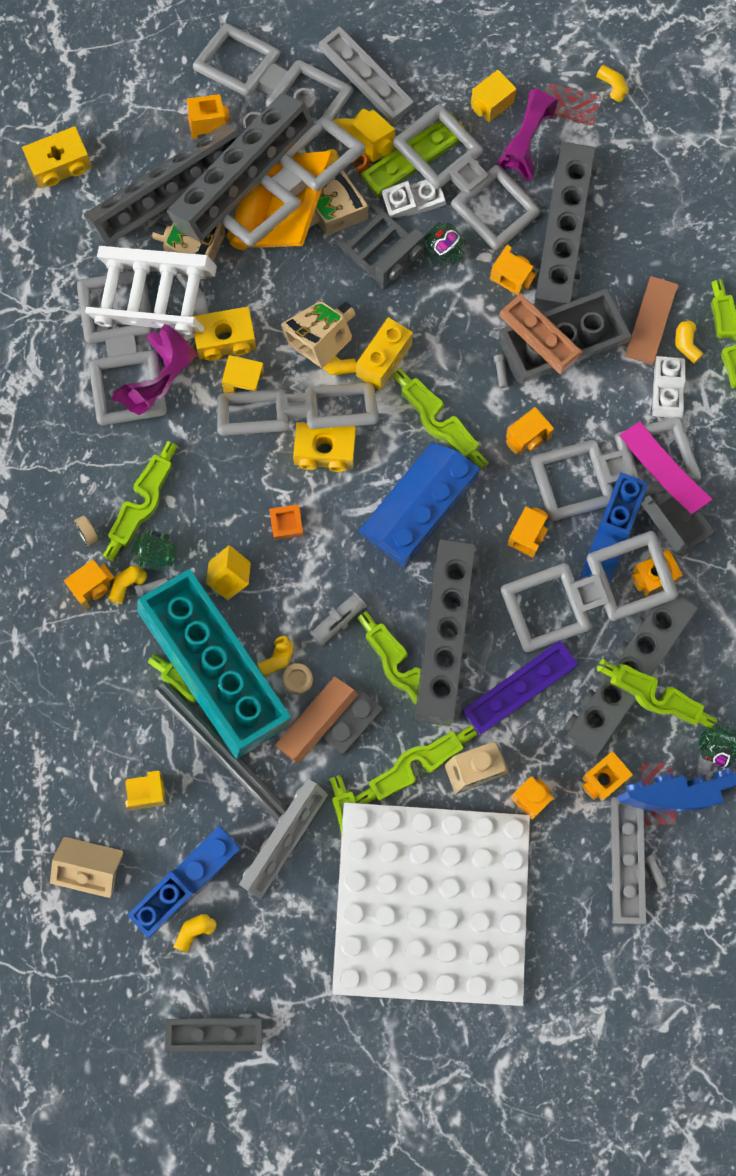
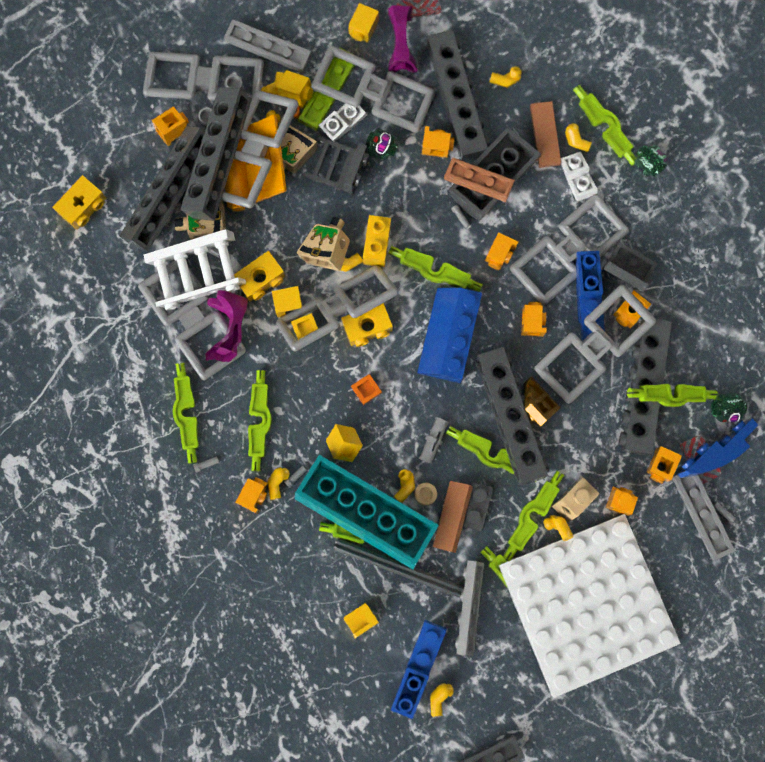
camera: 25 degrees left, 5 degrees up
(53, 523) = (198, 466): none -> light grey piece
(55, 468) = (187, 425): none -> lime piece
(85, 867) = (346, 690): tan panel -> none
(86, 530) = (231, 459): tan tile -> none
(154, 550) = (286, 451): clear green head -> none
(247, 411) = (304, 326): none -> yellow panel
(442, 789) = (559, 524): none -> yellow arm
(487, 632) = (538, 402): none -> pearl gold wing
(519, 688) = (577, 430): dark purple plate -> none
(636, 236) = (508, 79): none -> yellow arm
(664, 468) = (604, 235): dark pink sticker -> none

